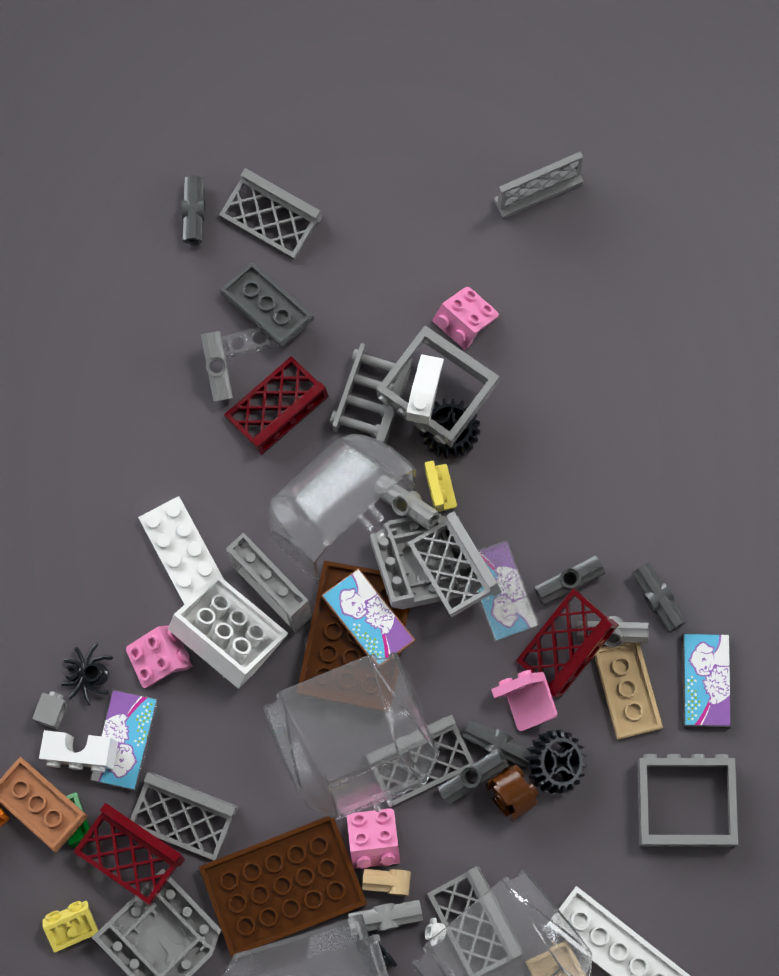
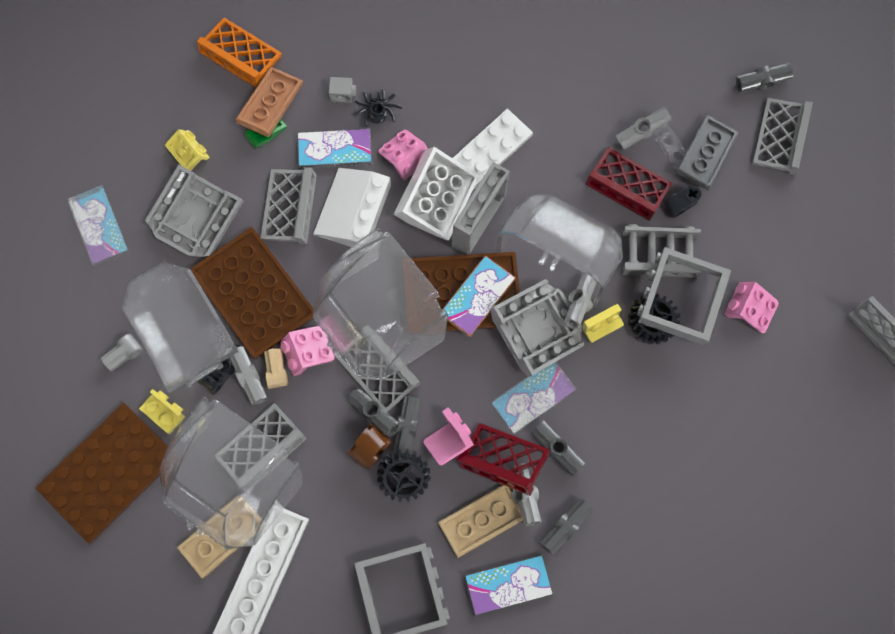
camera: 70 degrees right, 0 degrees up
(98, 753) = (316, 128): white arch -> none
(140, 836) = (263, 174): dark red fence -> none
(209, 737) = (352, 206): none -> white slope
(318, 354) = (680, 202): none -> black piece
(424, 389) = (676, 282): white slope -> none
(433, 929) = (247, 415): white plate -> none
(473, 559) = (548, 363): light grey fence -> none

